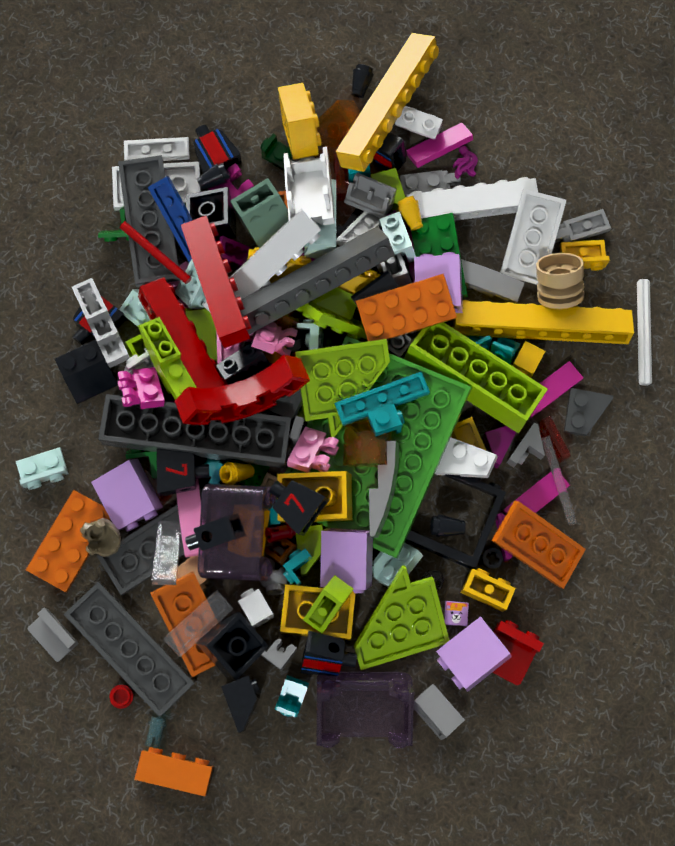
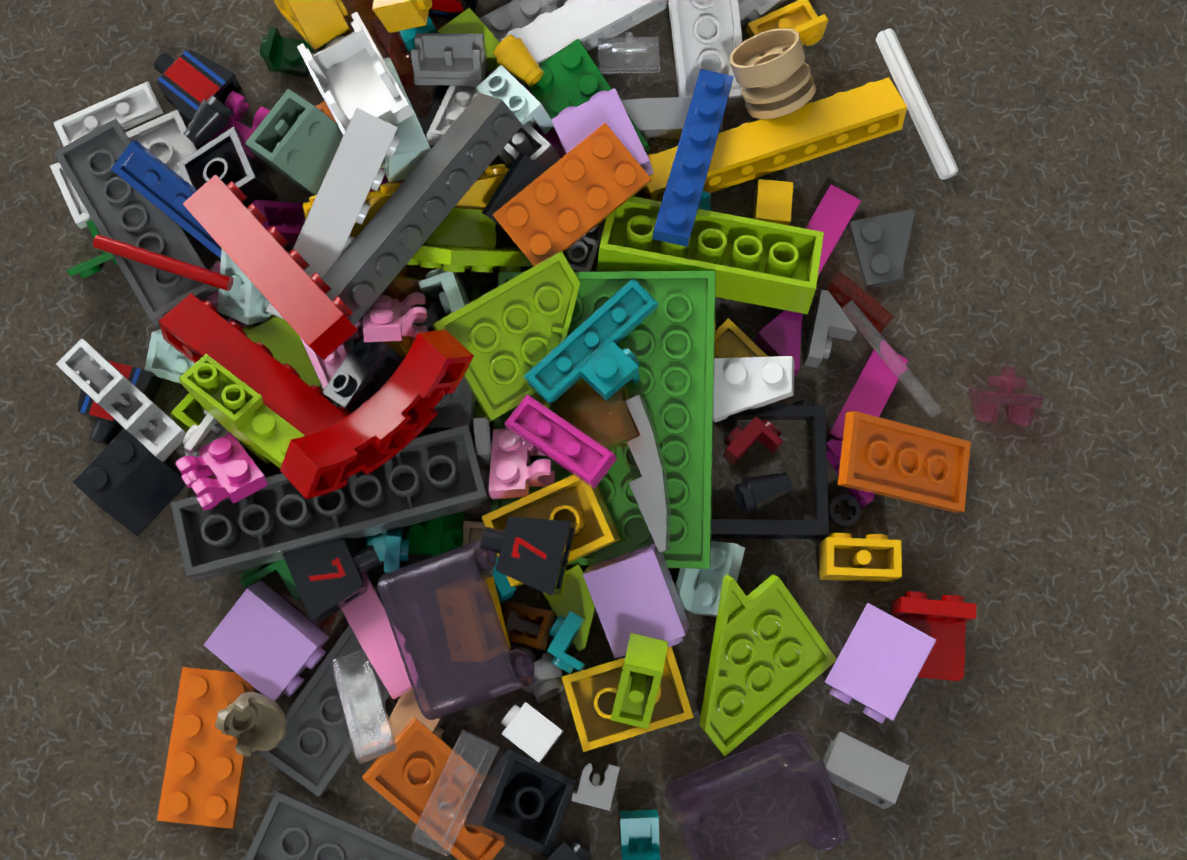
camera: 20 degrees left, 0 degrees up
(42, 468) = (121, 654): light aqua bracket -> none
(222, 531) = (434, 639): black torso -> none
(235, 472) = (418, 540): yellow cone -> none
(279, 532) = (520, 603): dark red pin -> none
(325, 655) = (665, 757): black torso -> none
(339, 449) = (561, 441): none -> dark pink tile
(449, 491) = (741, 440): none -> dark red bracket
(456, 613) = (827, 612): lavender tile -> none
(479, 233) = (628, 55): none -> clear hips
(490, 312) = (693, 158): none -> blue plate
(505, 349) = (735, 201): teal bracket -> none
(626, 539) = (1021, 404): none -> clear pink hips

